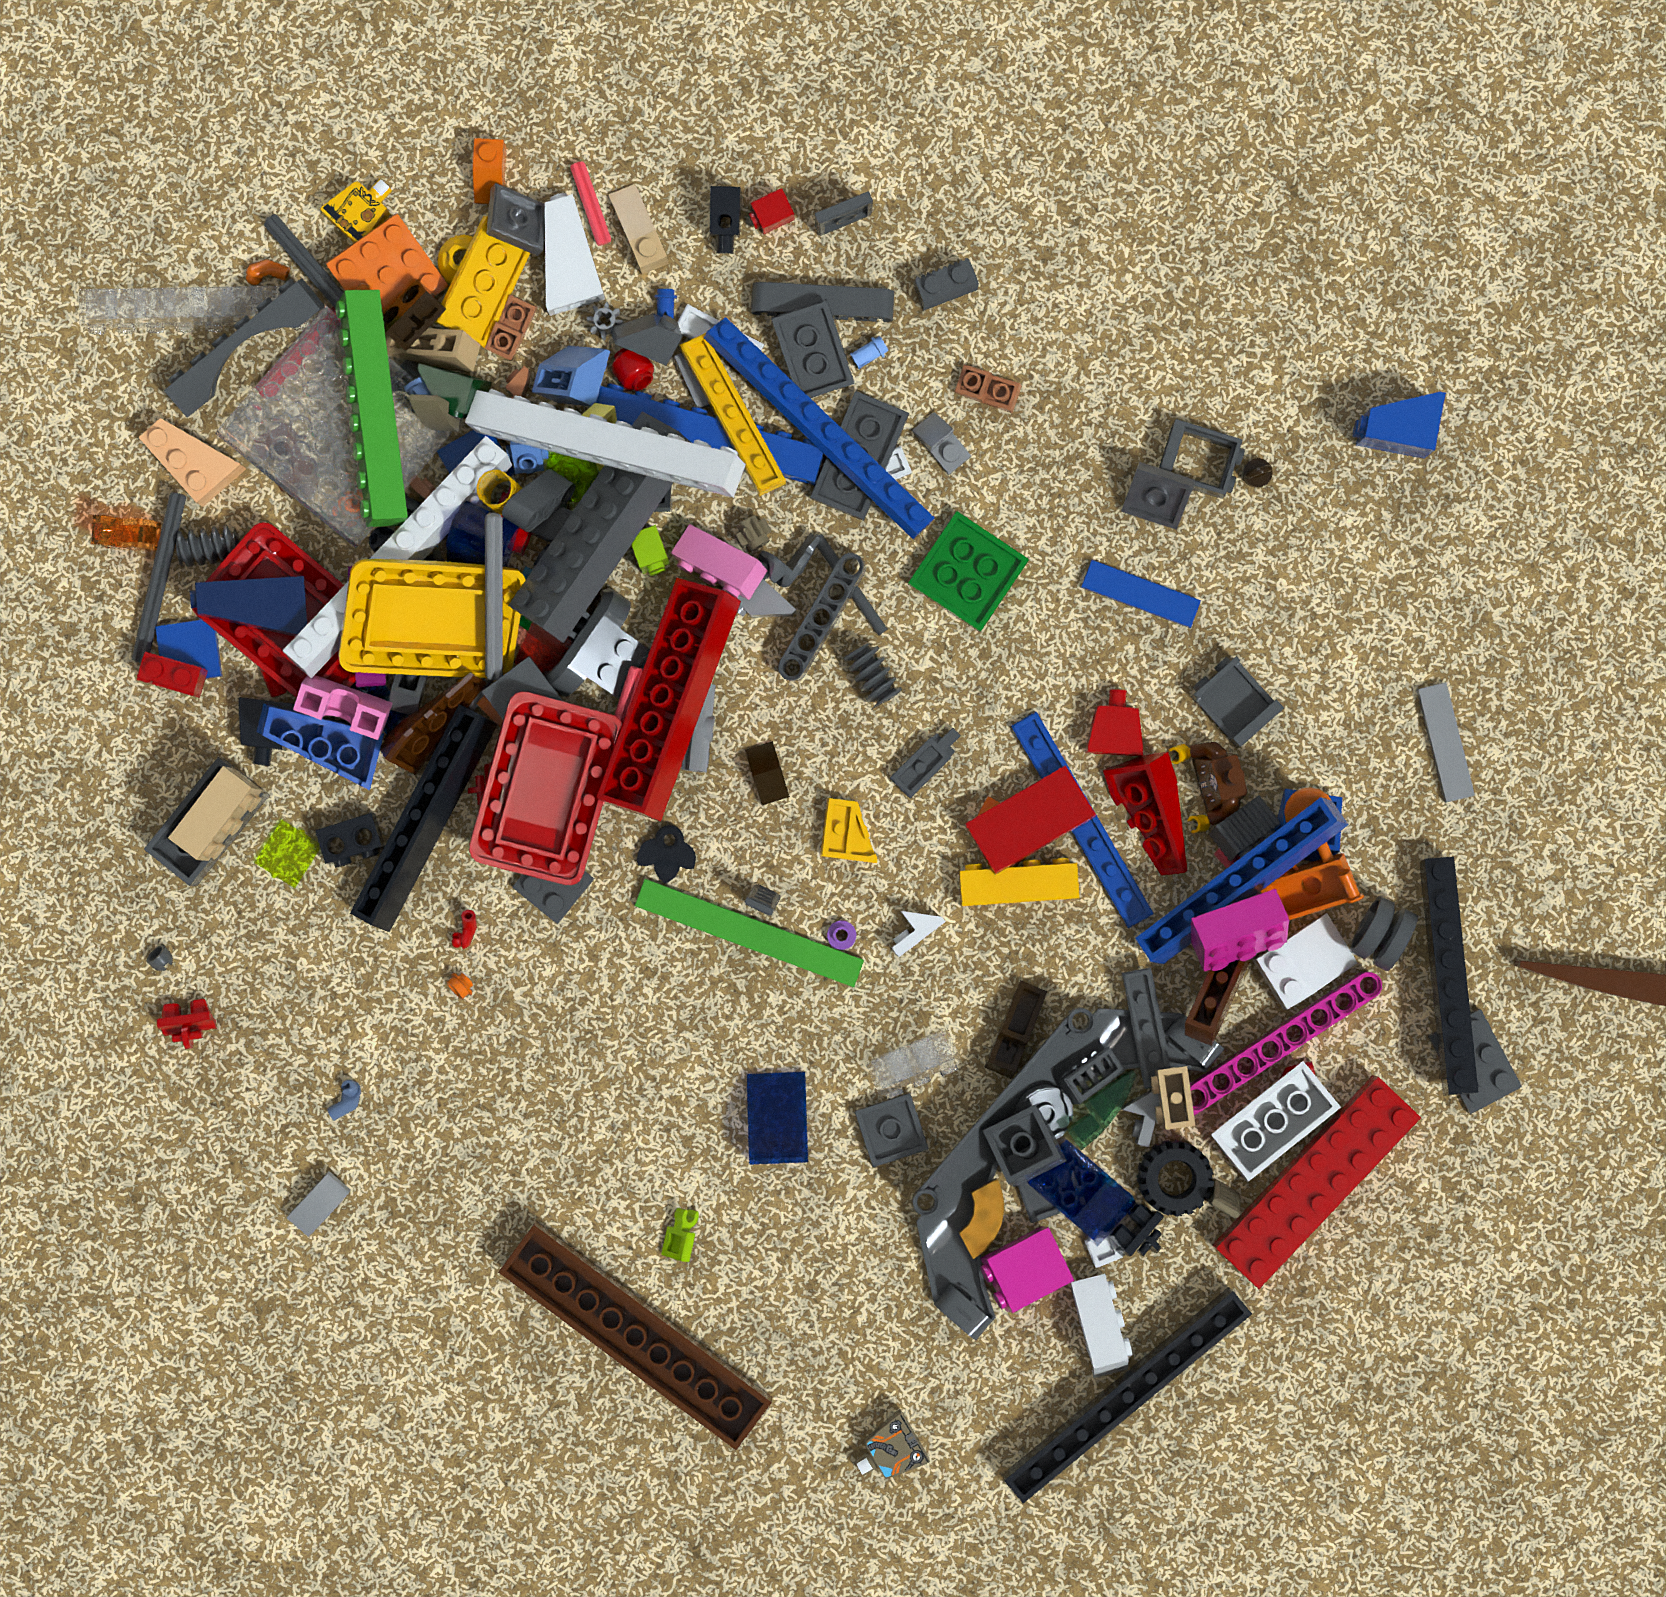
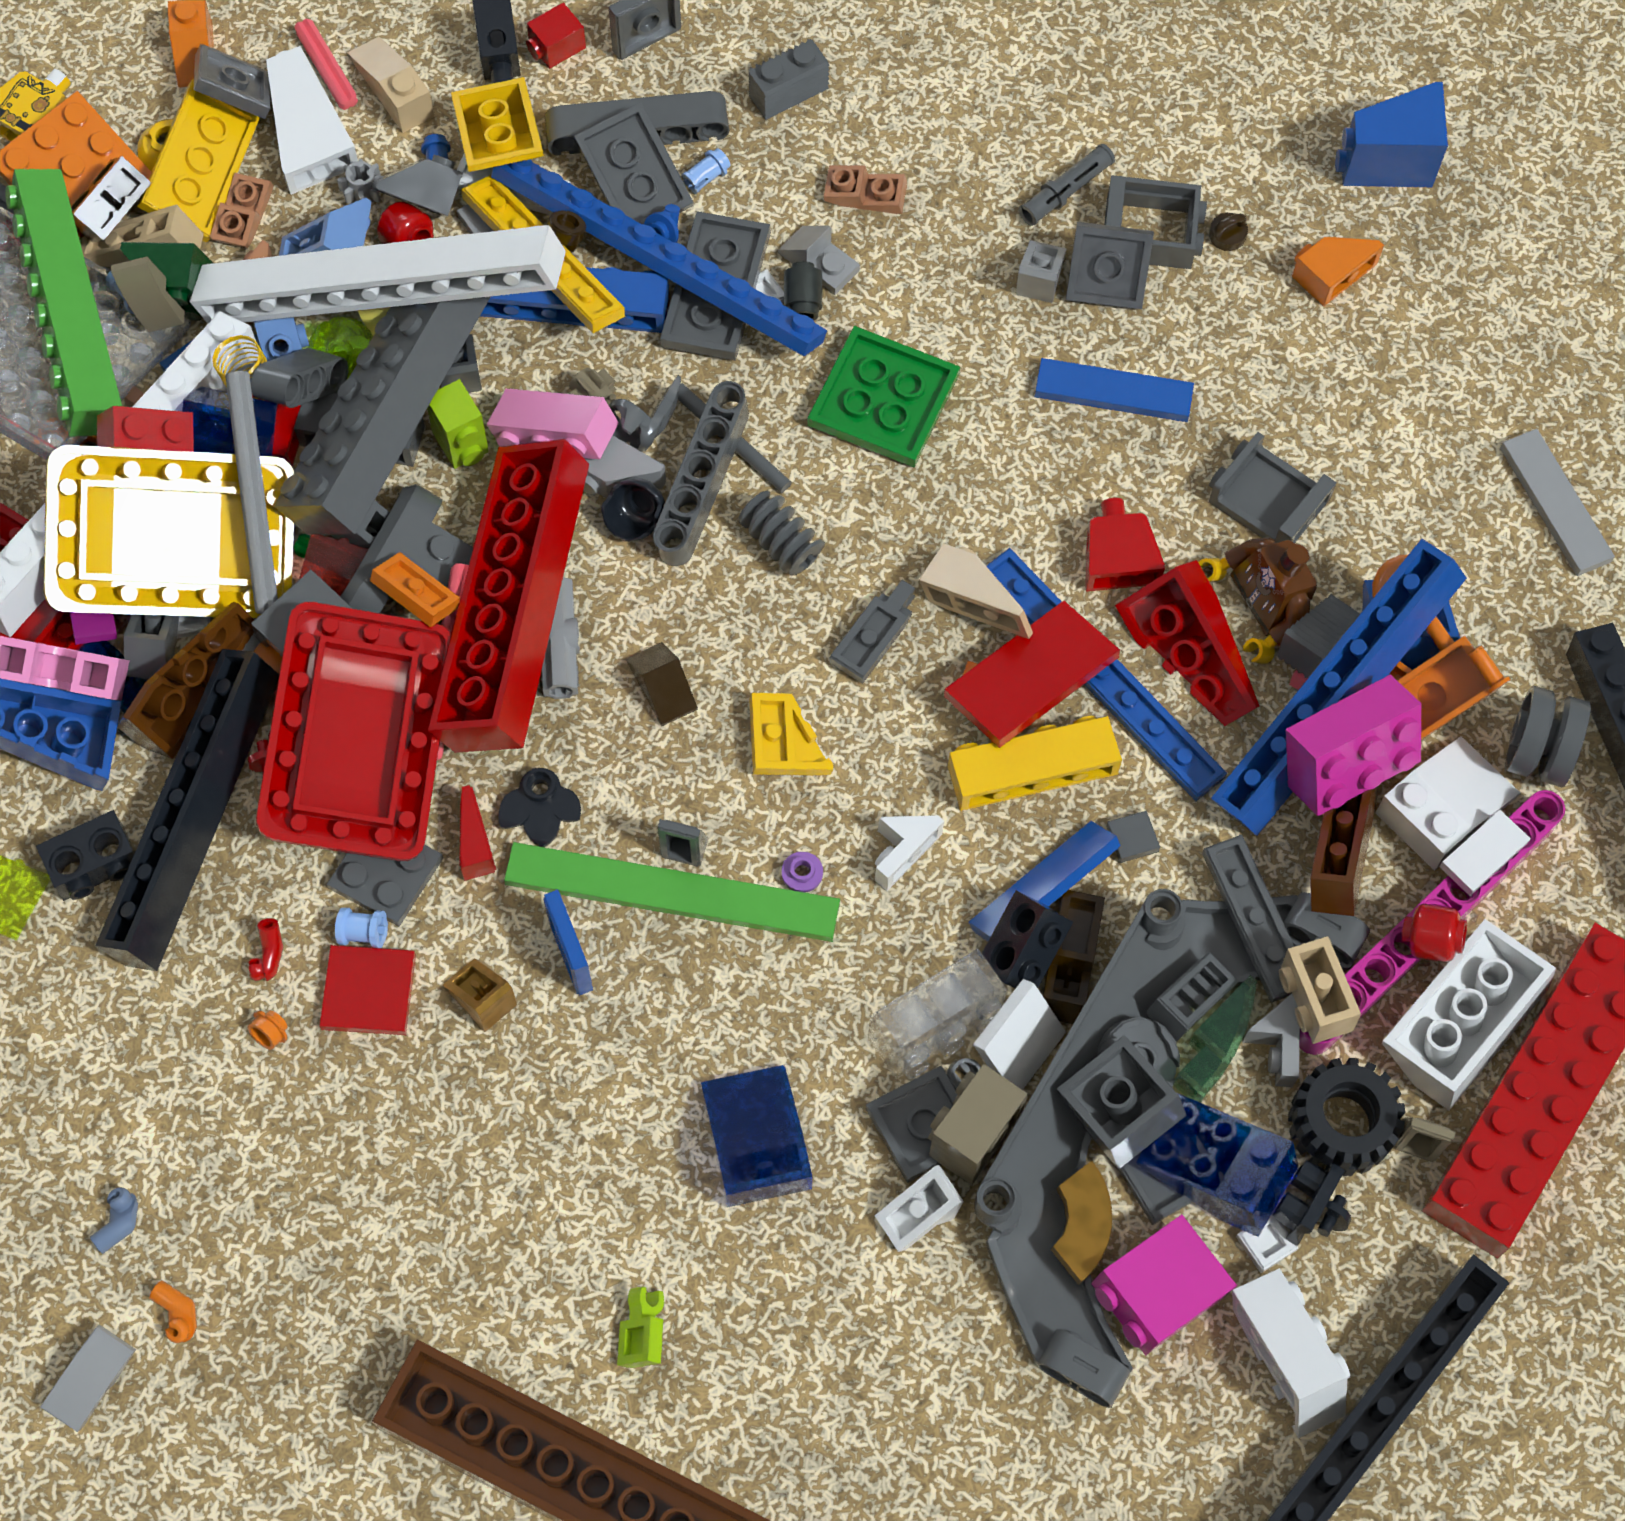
camera: 10 degrees left, 20 degrees down
(382, 1169) = (180, 1310): none -> orange arm
(422, 547) = (145, 429): none -> red brick
(531, 924) = (361, 927): none -> light blue bush
(531, 968) = (368, 990): none -> red tile
(601, 686) = (415, 589): none -> orange plate
(606, 984) = (481, 993): none -> pearl gold slope
(618, 877) = (475, 851): none -> red slope
(671, 966) = (568, 942): none -> blue tile
(714, 300) = (497, 124): none -> yellow slope
(753, 399) = (568, 228): none -> dark brown tile
(767, 638) = (632, 509): none -> black hair
(829, 401) = (665, 222): none -> blue plate
(876, 1190) = (920, 1208): none -> white slope
(919, 1104) = (964, 1065): none -> dark grey hinge
(923, 474) = (803, 289): none -> pearl dark grey brick
(923, 1147) = (976, 1124): none -> dark tan brick
(966, 1086) = (1020, 1035): none -> white tile
(983, 1021) = (1025, 940): none -> black brick
(998, 741) = (966, 586): none -> tan slope
(1008, 974) = (1053, 874): none -> blue tile
(1077, 948) = (1134, 835): none -> dark grey tile
(1108, 483) = (1040, 271): none -> light grey slope
(1133, 418) = (1055, 193): none -> dark grey pin
(1264, 1068) = (1435, 933): none -> red head
(1315, 1013) = (1484, 852): none -> white tile
(1328, 520) = (1334, 265): none -> orange slope

